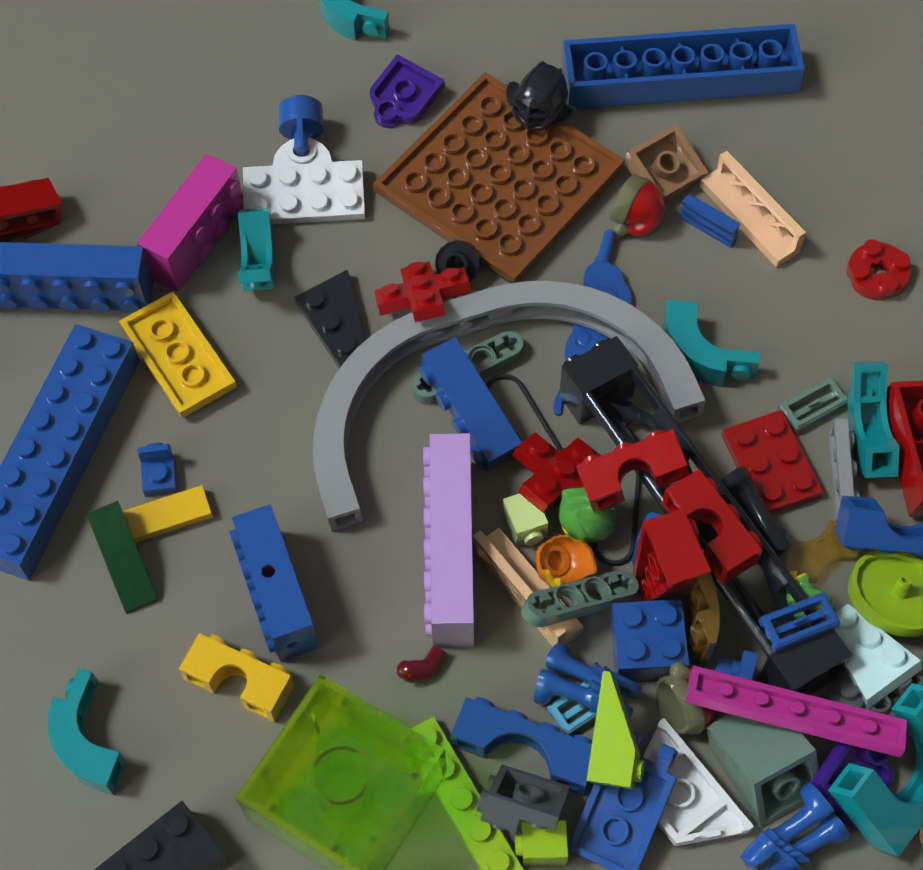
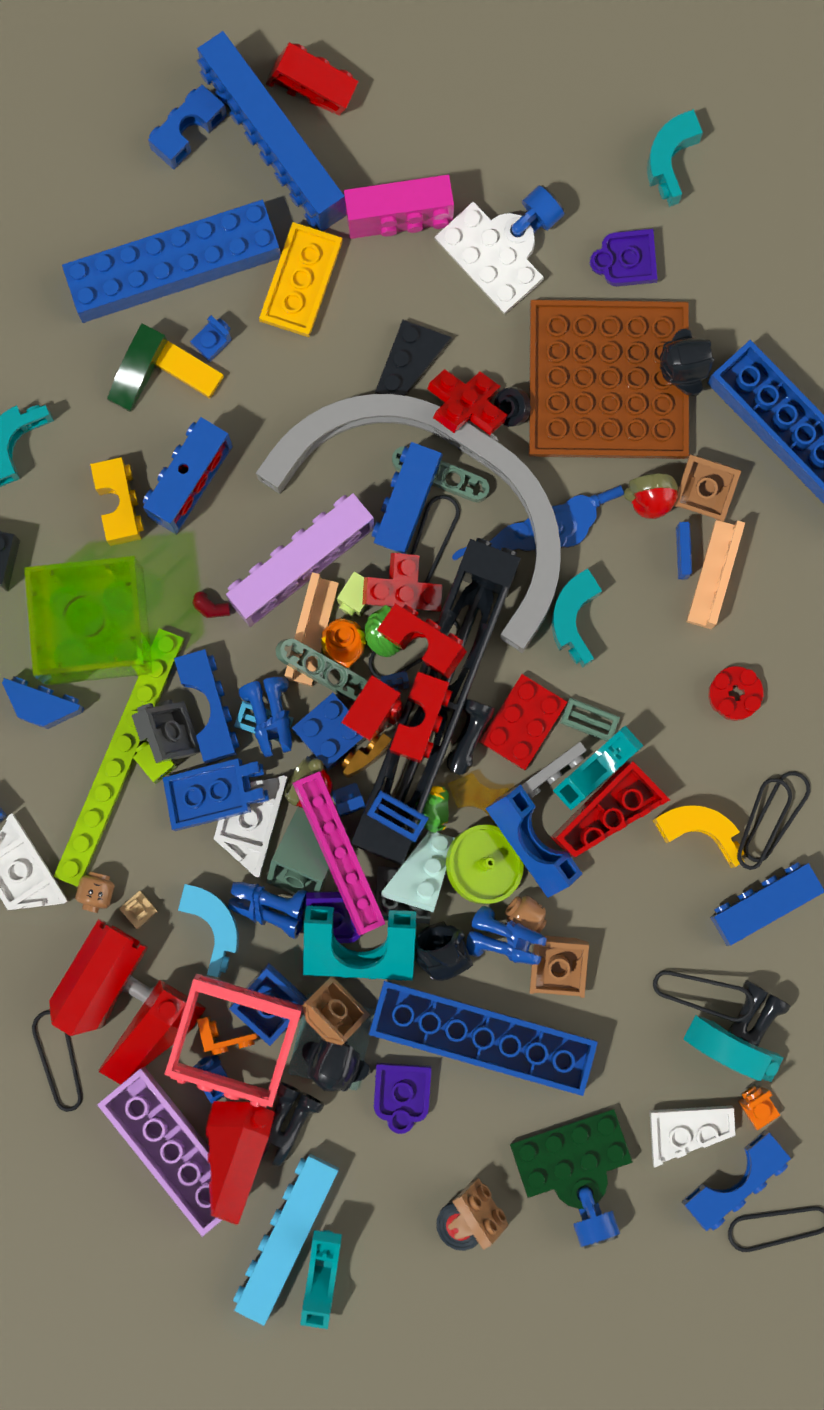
camera: 50 degrees right, 20 degrees up
(257, 249) = (415, 267): teal arch -> none
(614, 747) = (238, 758): lime slope -> none

